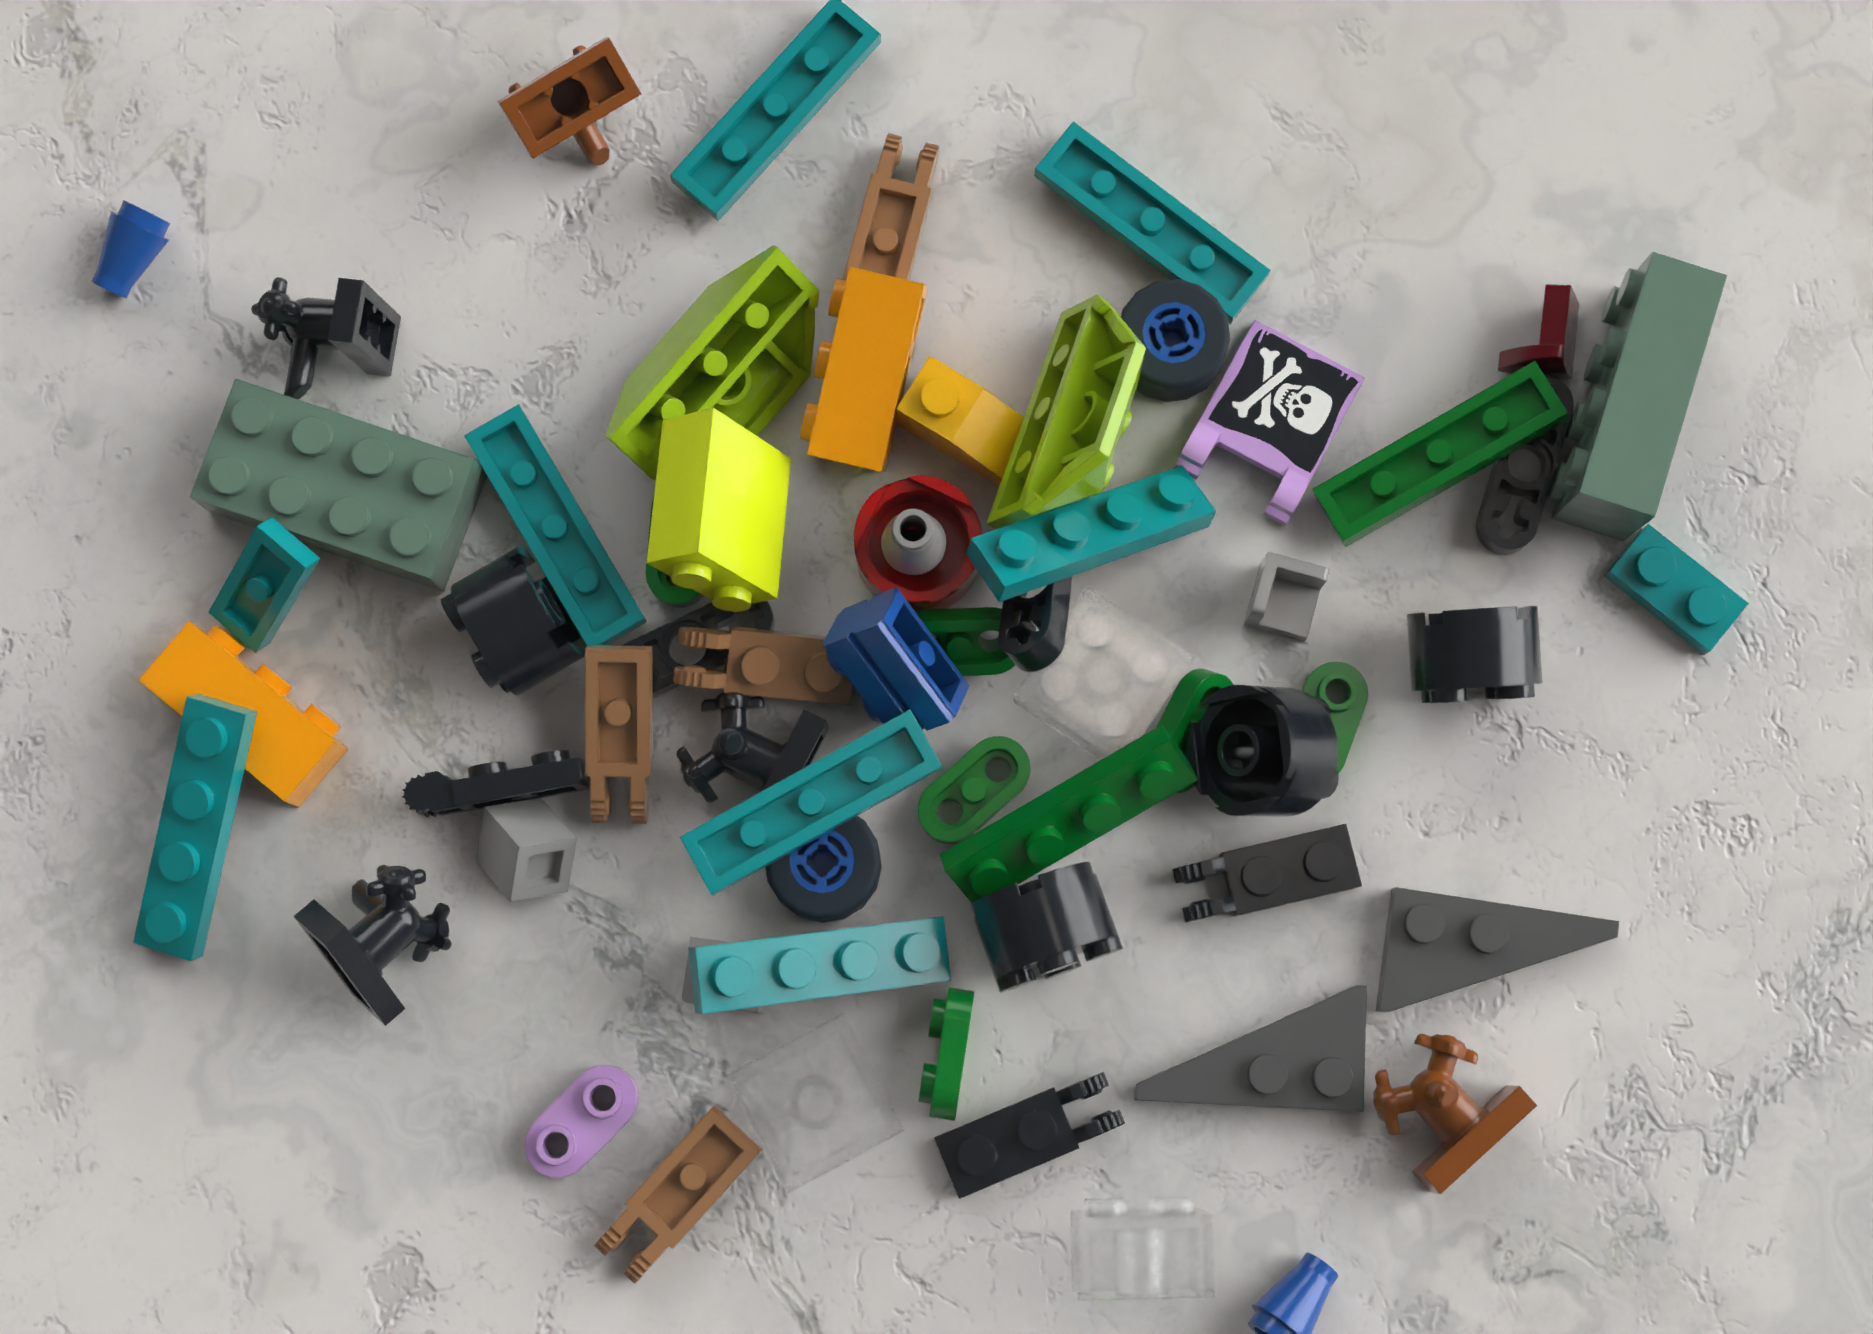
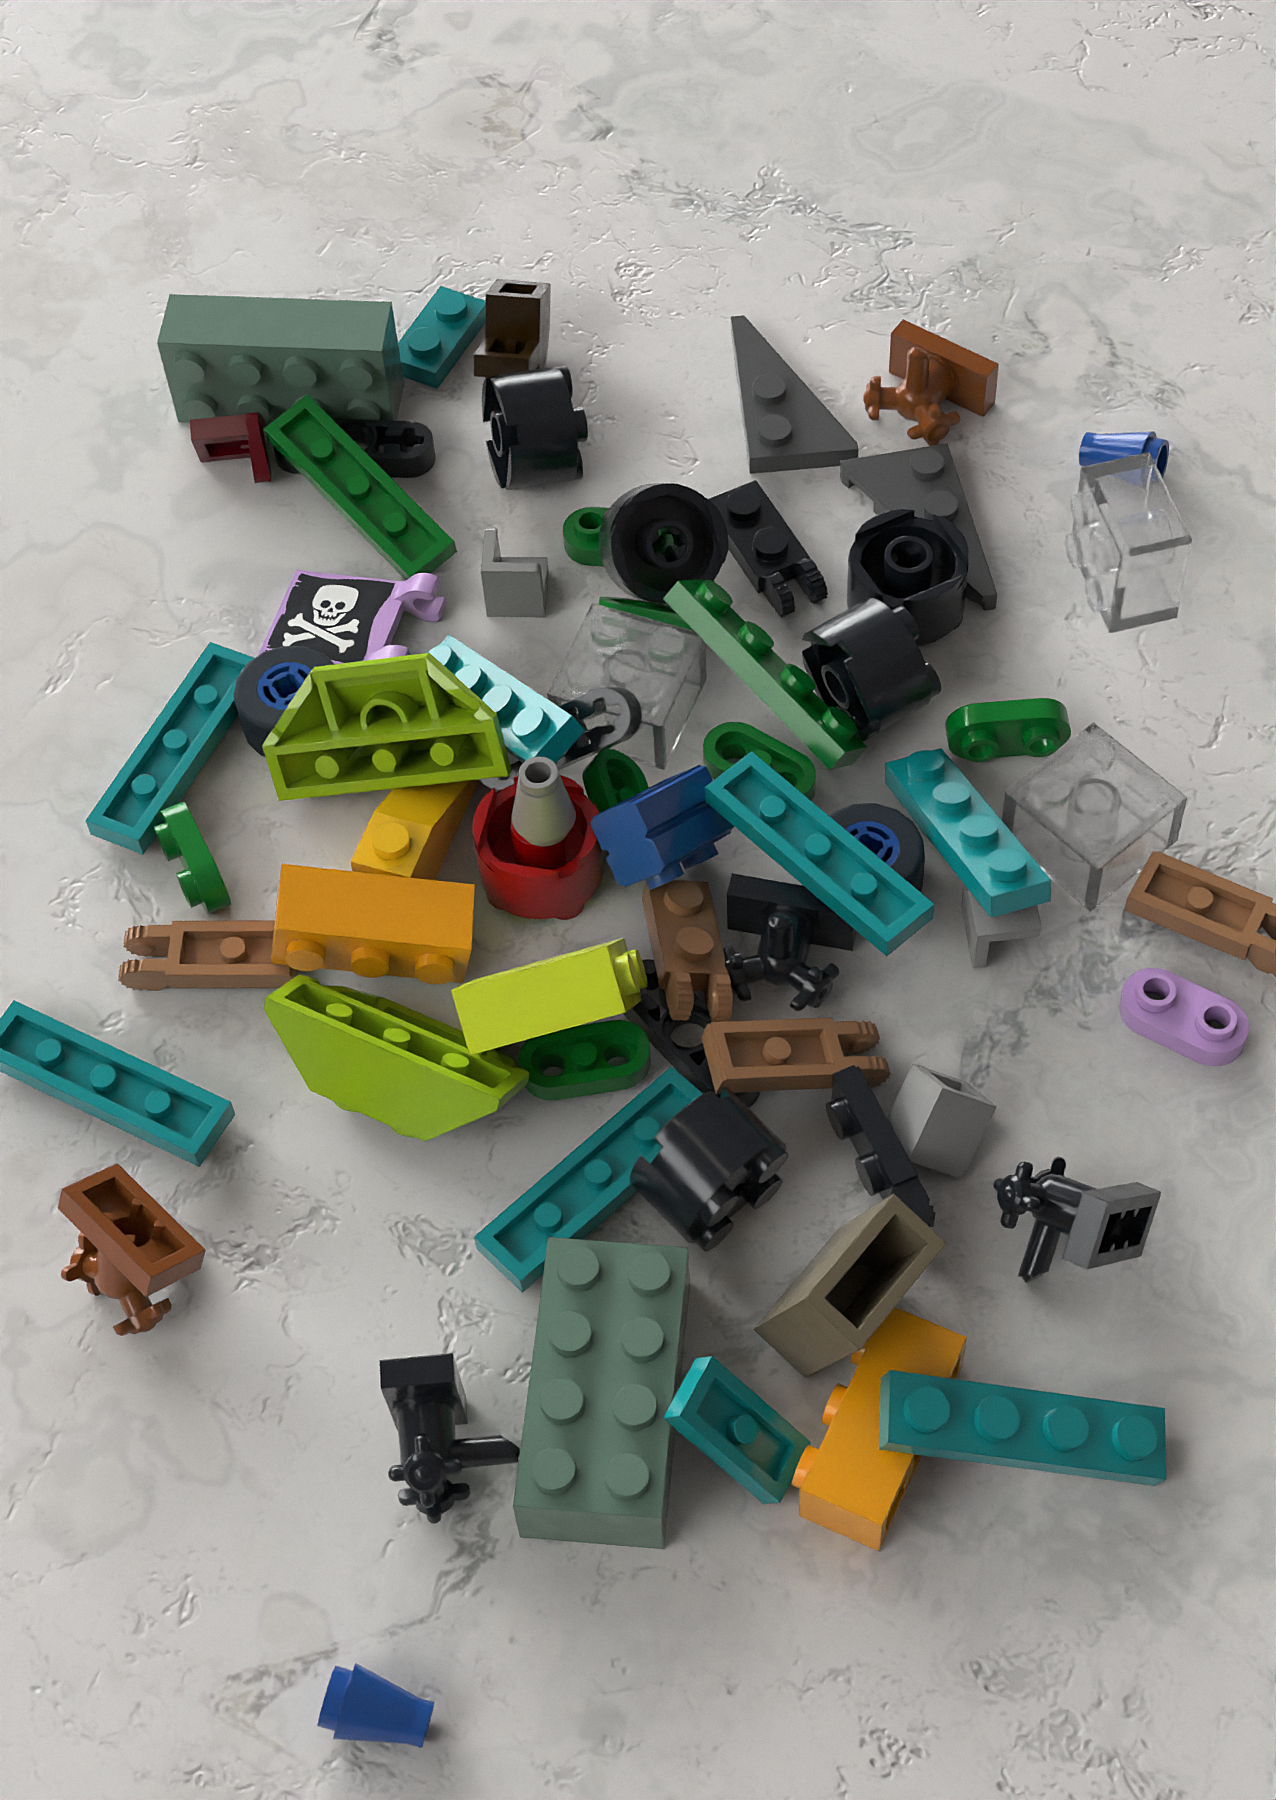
camera: 100 degrees left, 25 degrees down
(345, 706) = (850, 1286): none -> dark tan brick
(982, 224) = (201, 878): none -> green plate
(1020, 1136) = (1056, 667): black hinge -> none
(1181, 970) = (911, 566): none -> black brick
(1629, 666) = (514, 328): none -> dark brown brick

